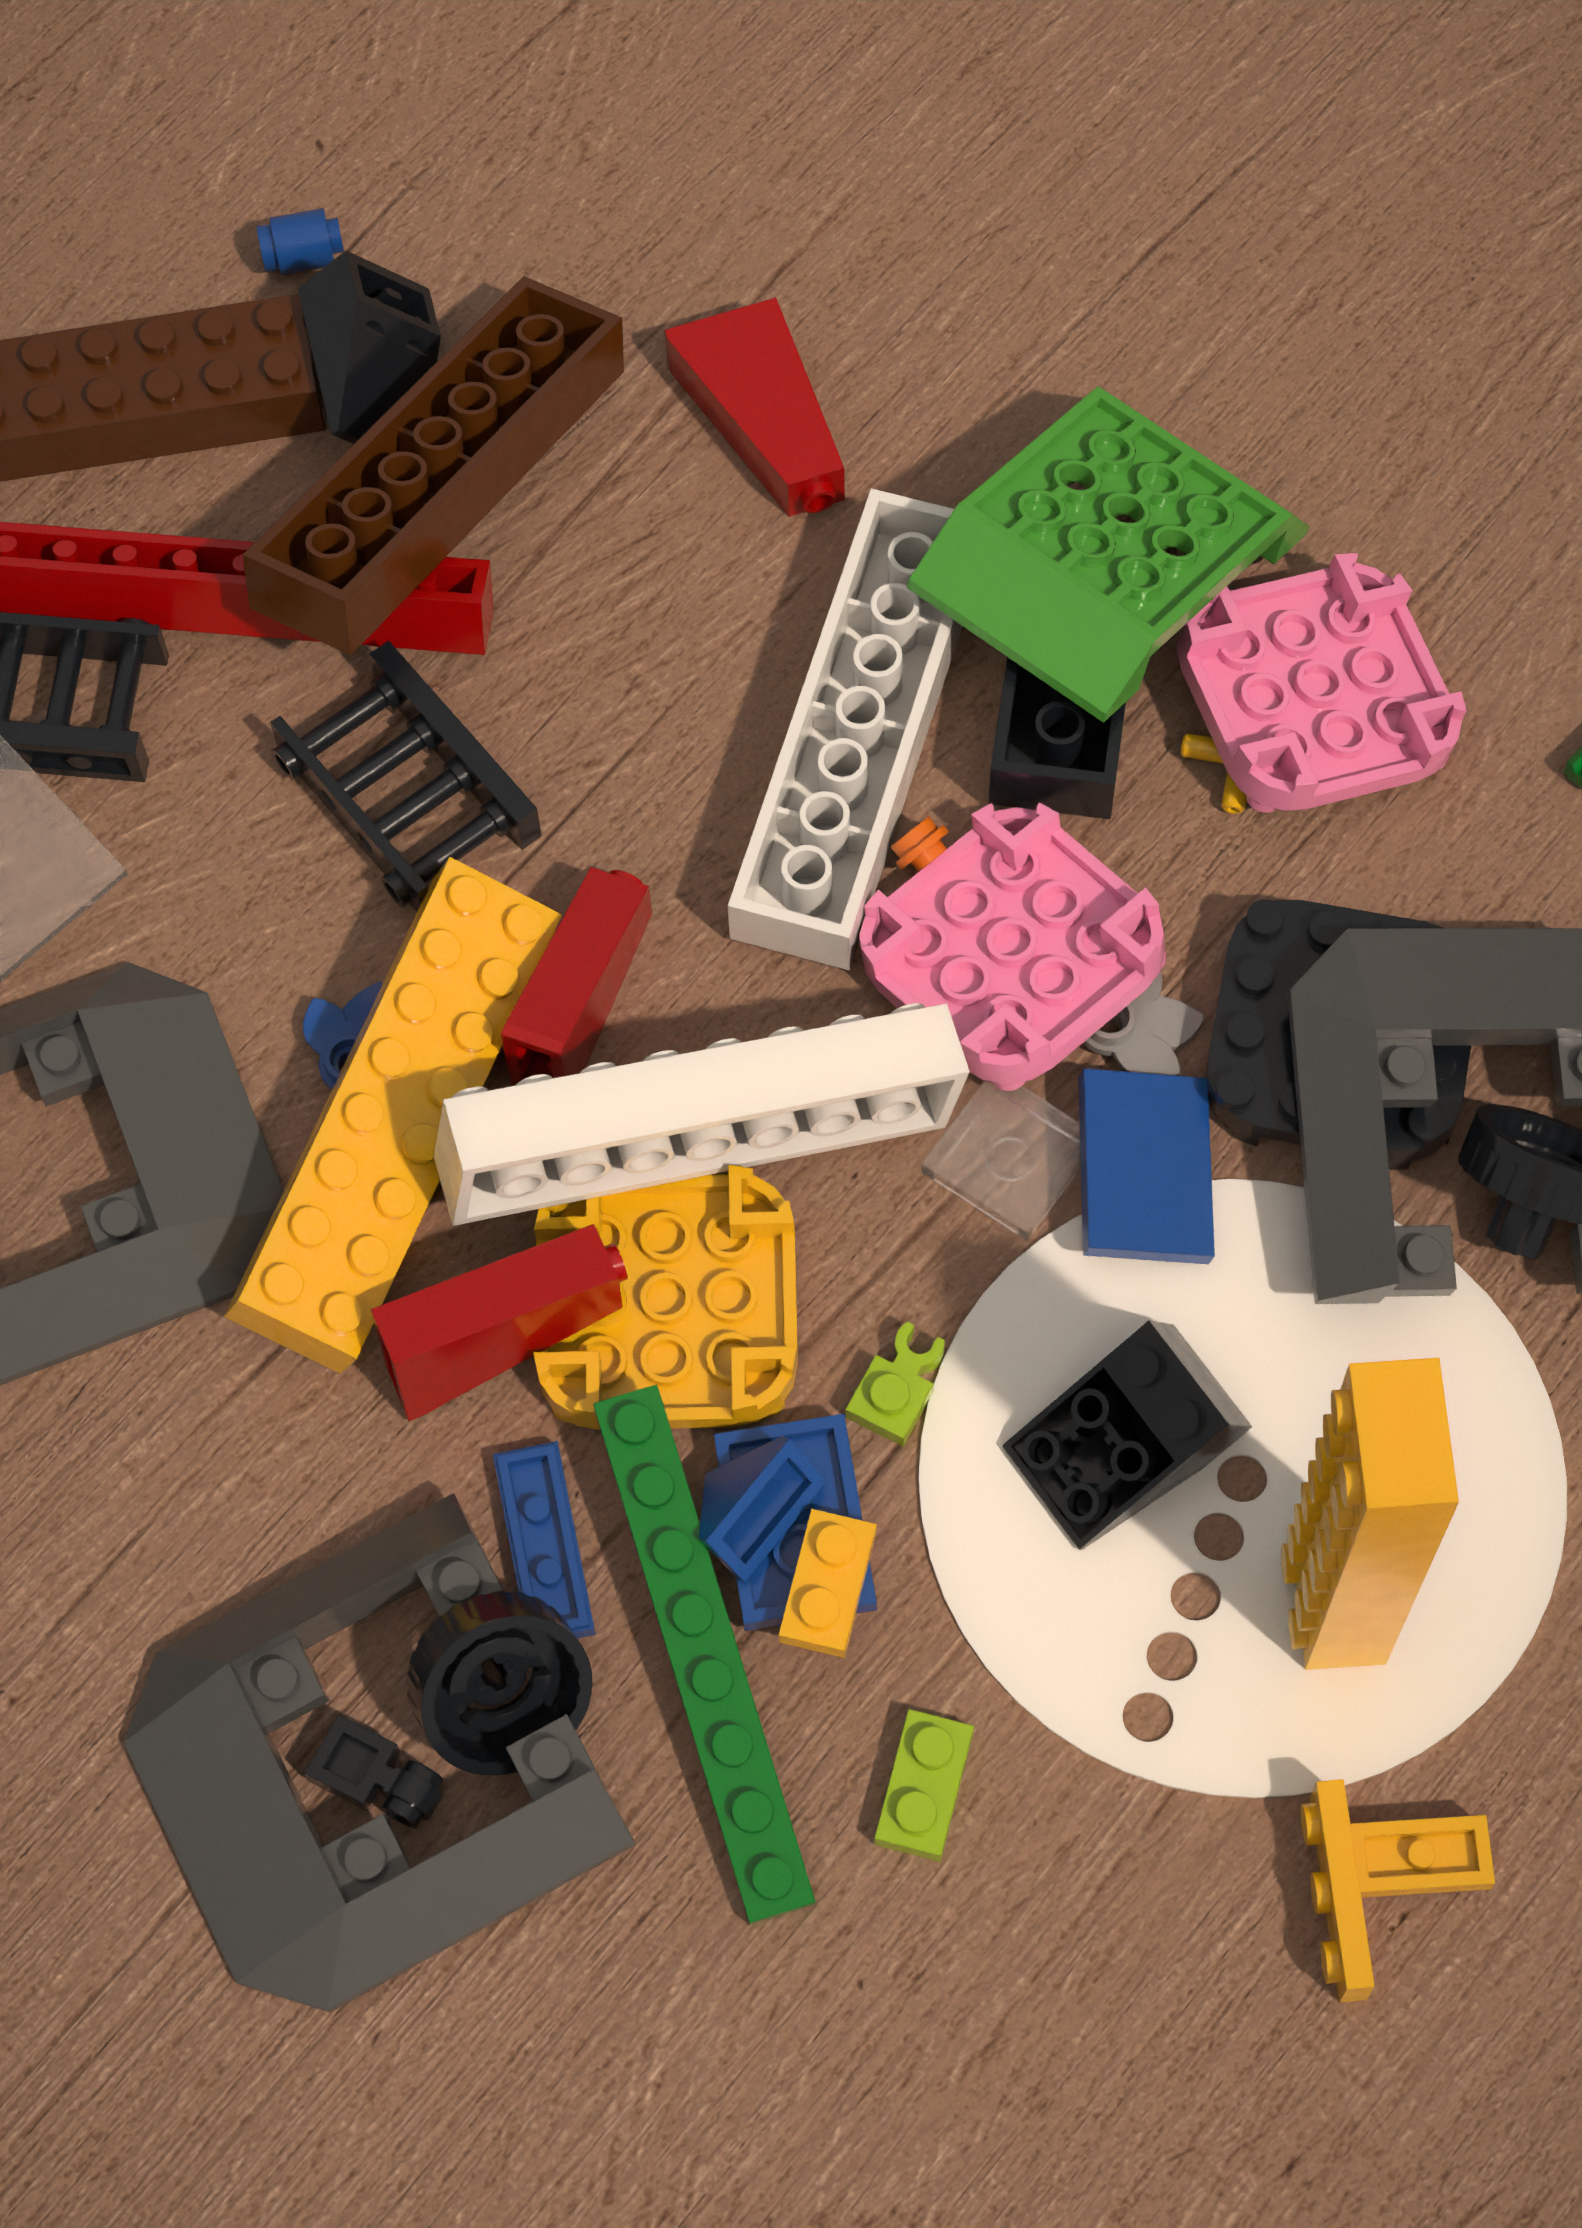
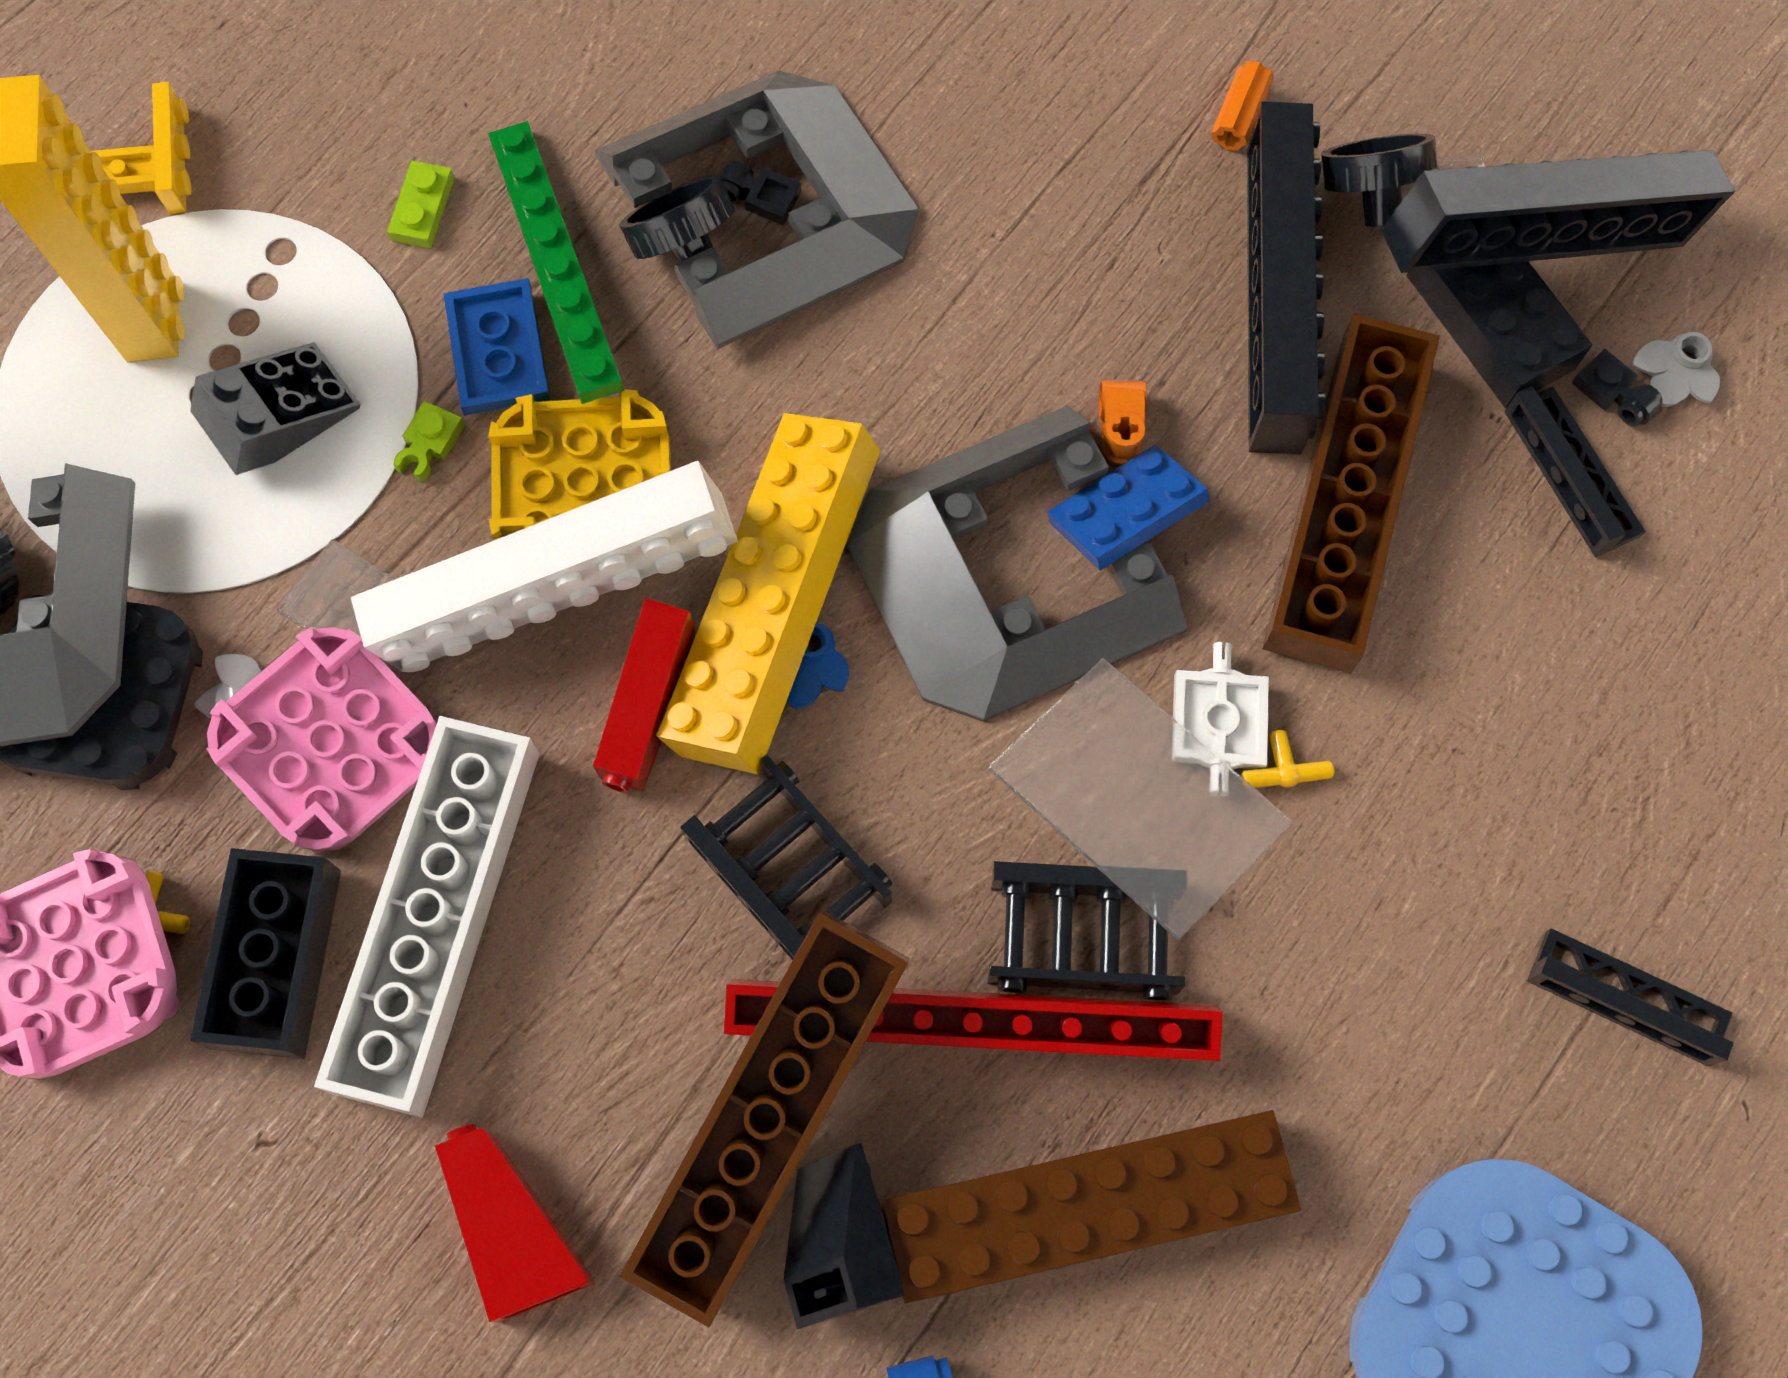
camera: 175 degrees right, 5 degrees up
(495, 1317) = (706, 431): red slope -> none
(544, 1532) = (661, 334): blue tile -> none
(755, 1503) = (522, 339): blue slope -> none
(827, 1583) = (472, 297): yellow plate -> none
(920, 845) = (387, 823): orange plate -> none
(1070, 585) = (257, 1017): bright green slope -> none
(1145, 1166) = (244, 585): blue tile -> none

